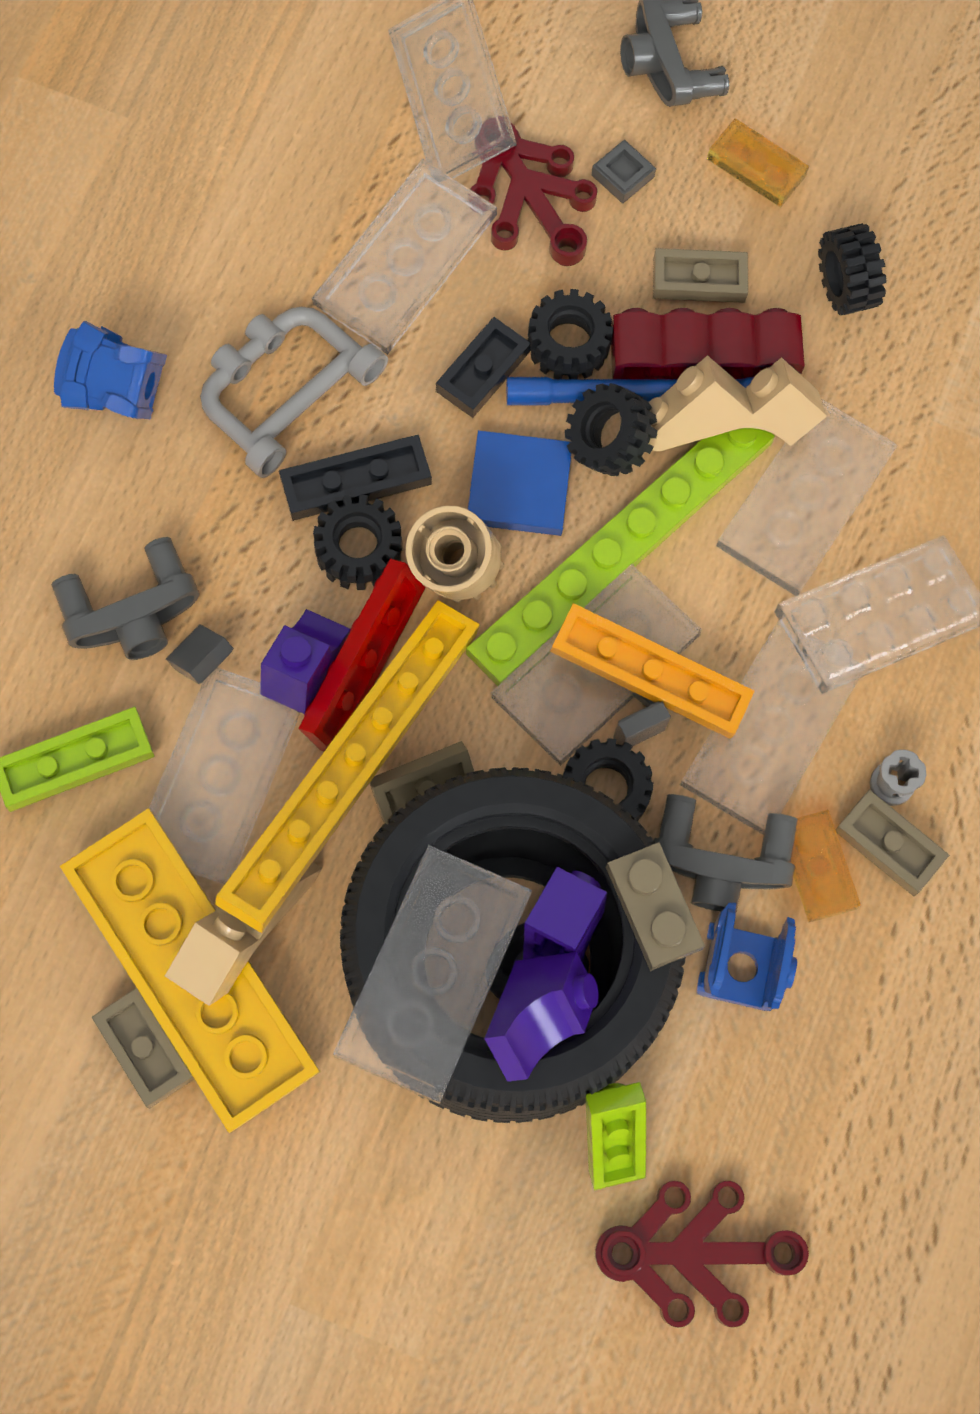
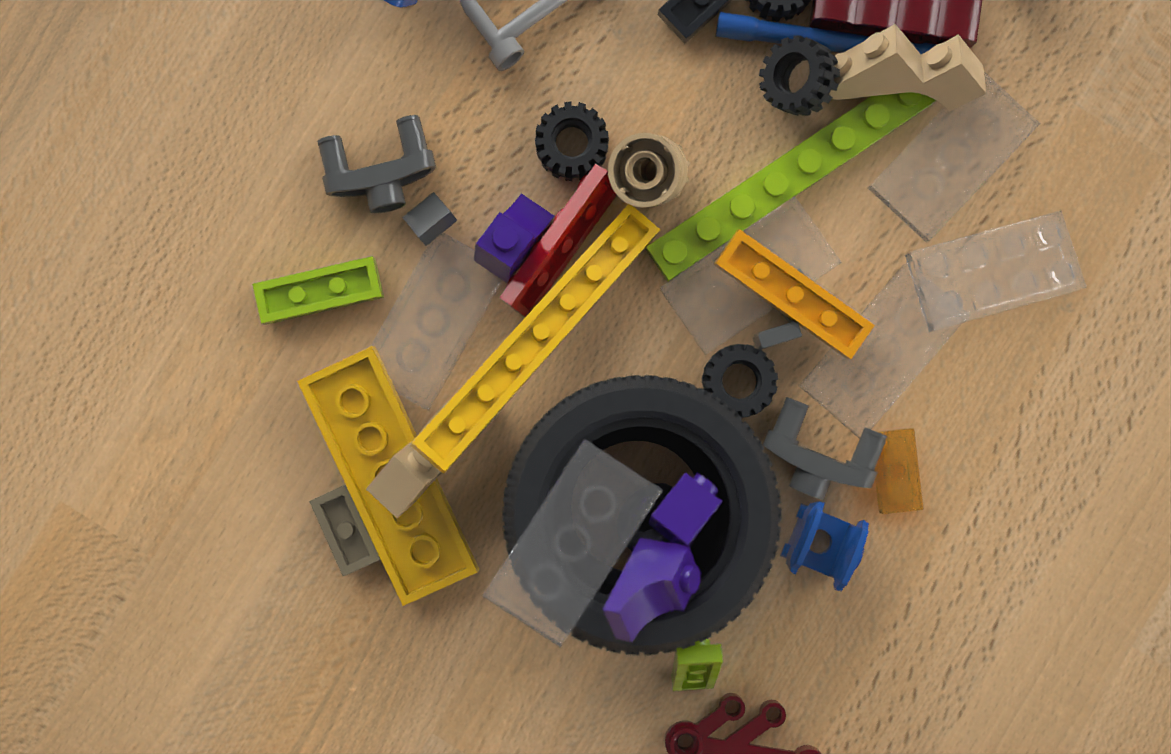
camera: 15 degrees right, 15 degrees up
(367, 471) = (579, 81): black plate -> none
(407, 781) = (594, 357): dark tan plate -> none
(520, 482) = (714, 108): blue tile -> none
(655, 906) = (758, 518): dark tan plate -> none
(892, 843) = (959, 463): dark tan plate -> none
(909, 770) = (984, 403): light grey bush -> none

